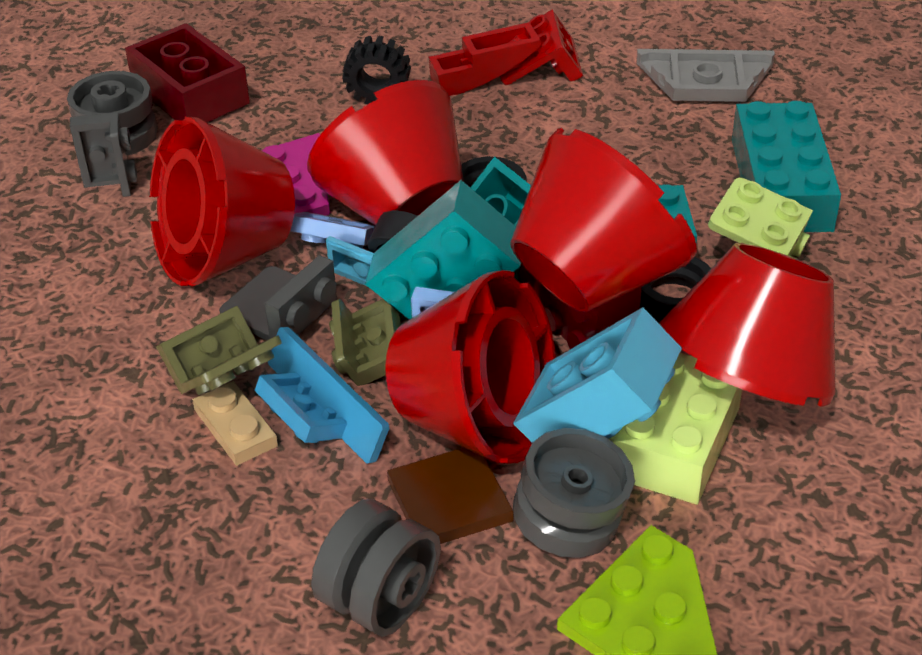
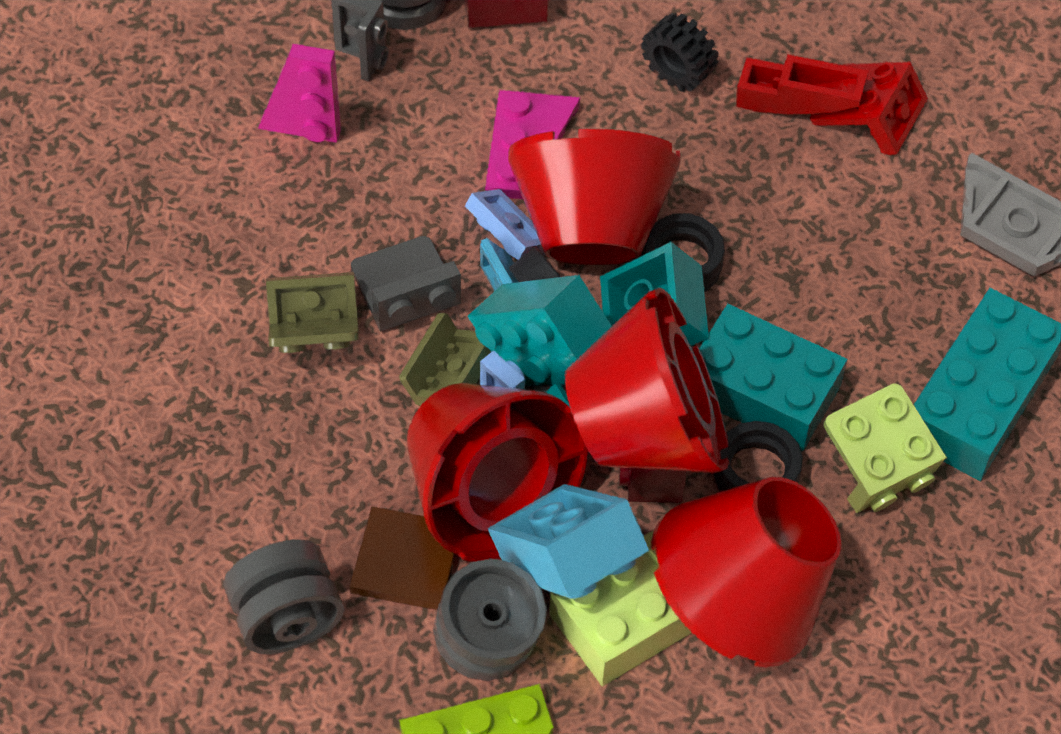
camera: 30 degrees right, 15 degrees up
(94, 204) = (305, 96): none -> dark pink wing
(215, 201) = (412, 154): red cone -> none
(235, 423) = (289, 388): tan plate -> none
(318, 401) = (358, 403): dark azure bracket -> none

